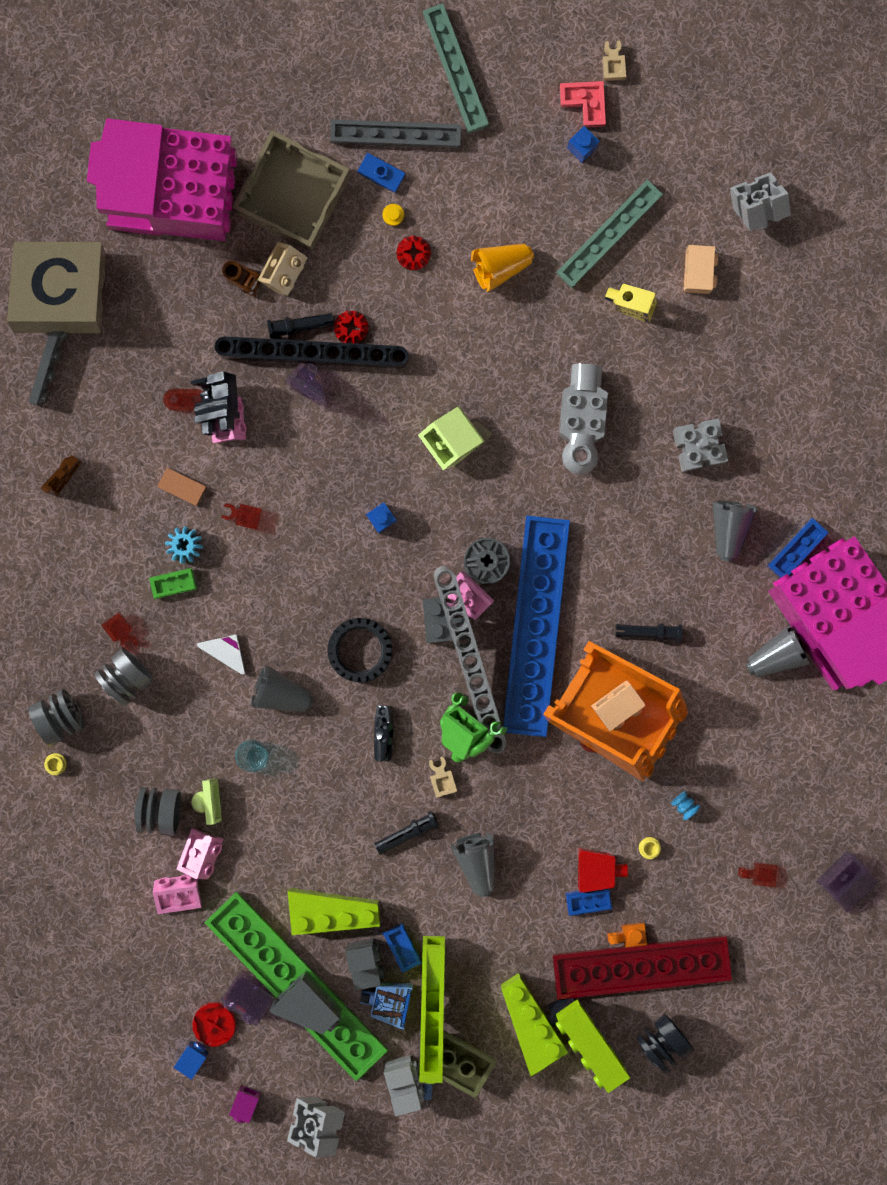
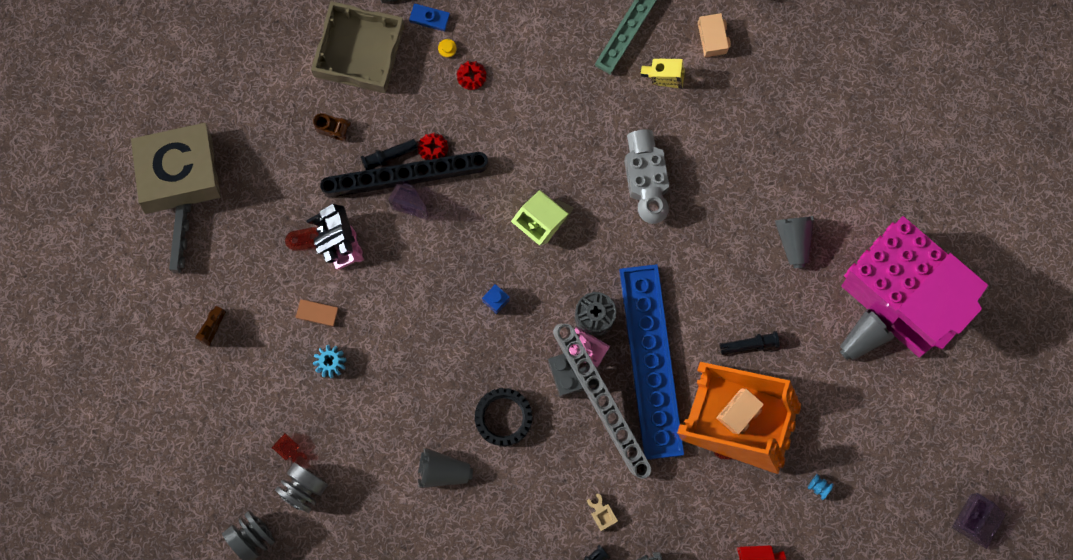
camera: 15 degrees left, 10 degrees down
(163, 180) = (249, 59): dark pink piece -> none
(173, 583) = (327, 397): bright green plate -> none
(225, 650) = (385, 445): white tile -> none
(245, 753) = (423, 531): clear light blue hair -> none
(246, 516) = (378, 324): clear red plate -> none
(282, 268) = (364, 111): tan brick -> none
(383, 733) = (541, 485): black hinge -> none
(464, 733) = (613, 467): bright green torso -> none
(500, 263) = (545, 67): light orange cone -> none
(649, 848) = (799, 532): light yellow plate -> none
(700, 445) = (751, 177): light grey brick -> none
(762, 874) = (902, 531): clear red plate -> none
(797, 548) = (857, 243): blue plate -> none

